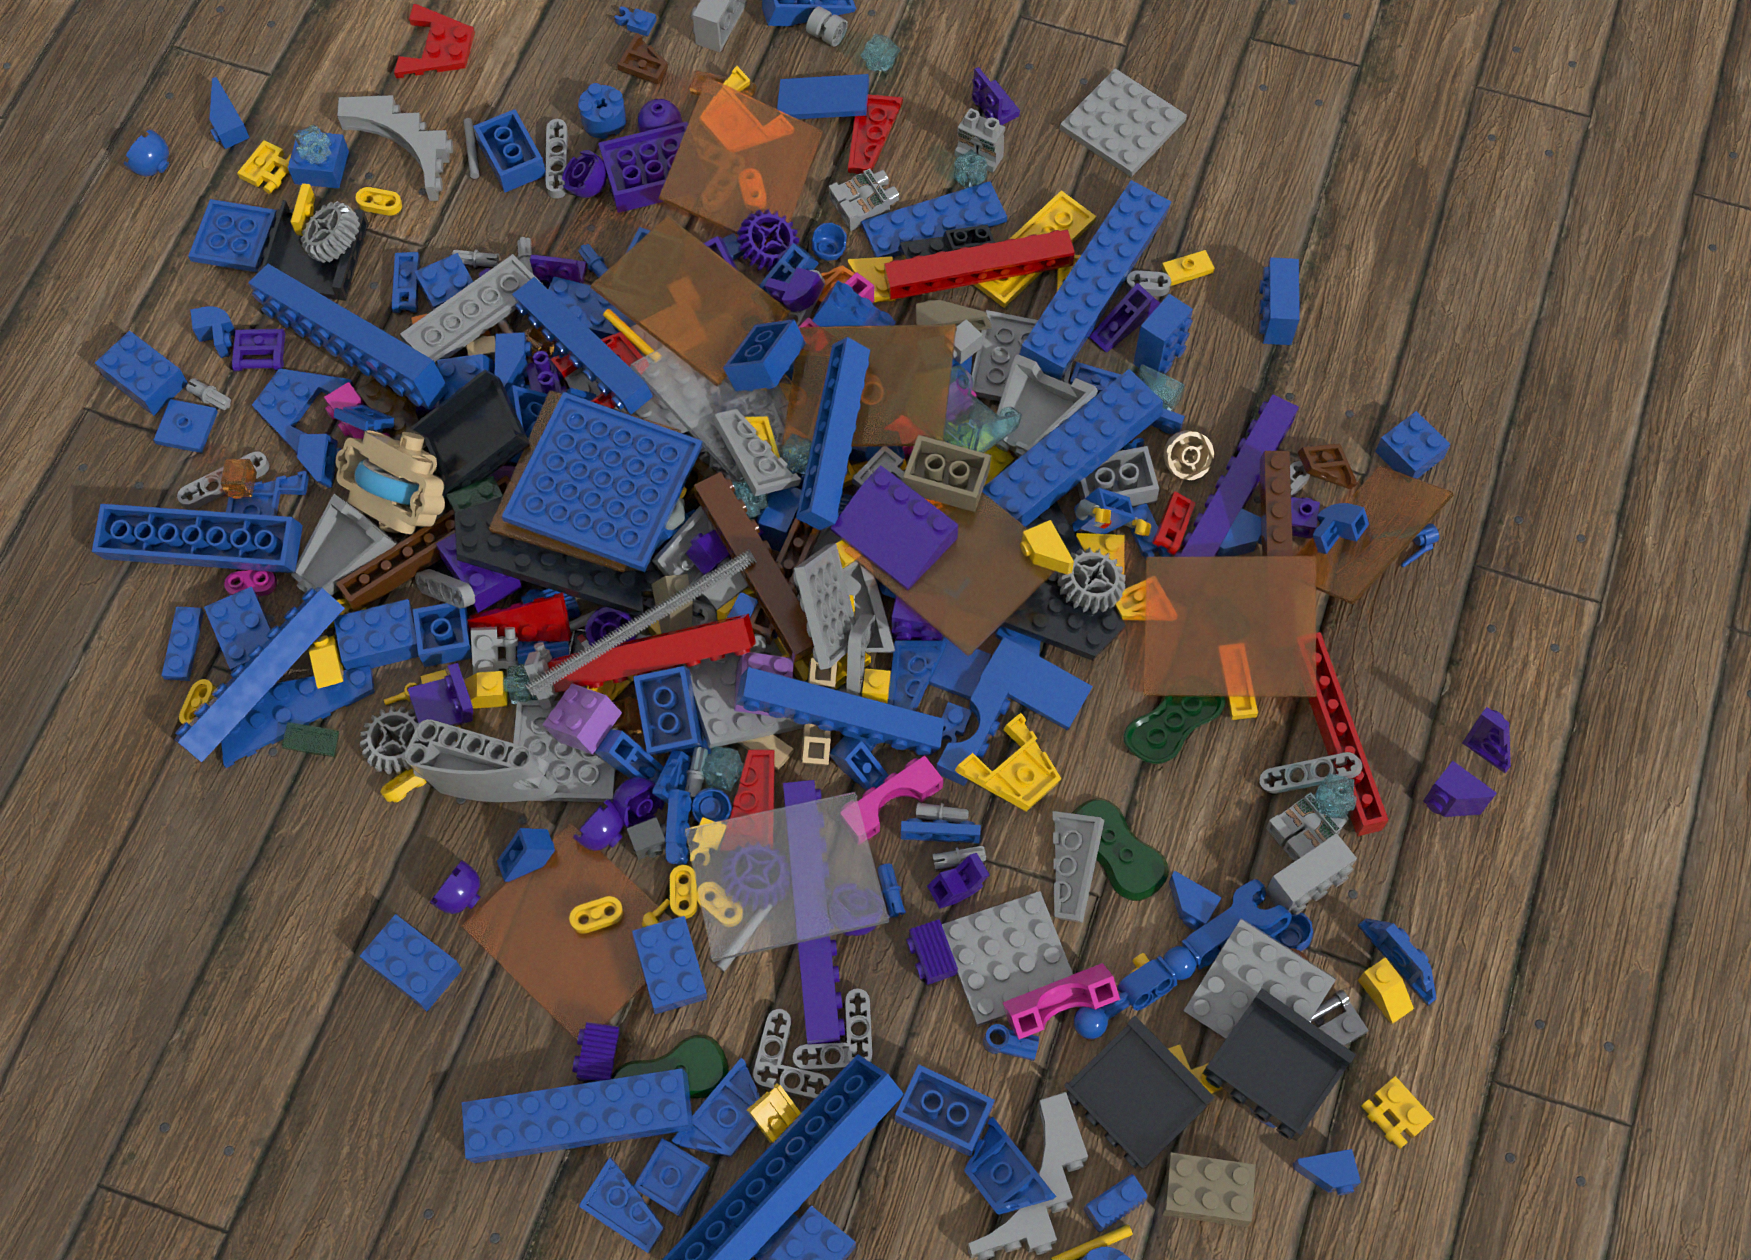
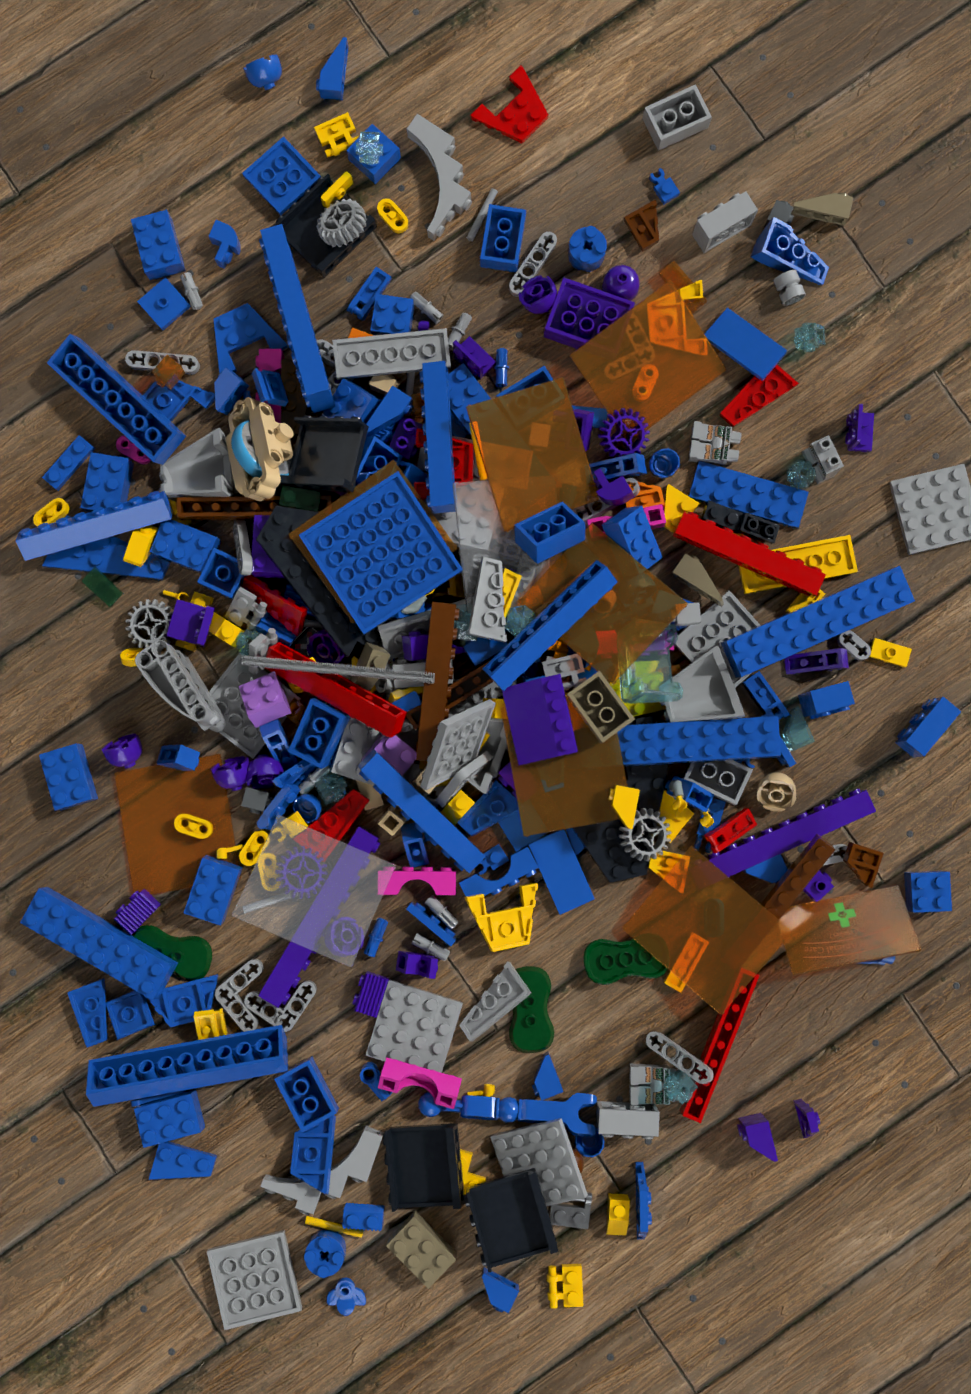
camera: 40 degrees right, 20 degrees up
(258, 343) = (247, 274): dark purple plate -> none
(1338, 521) = (835, 909): blue brick -> none

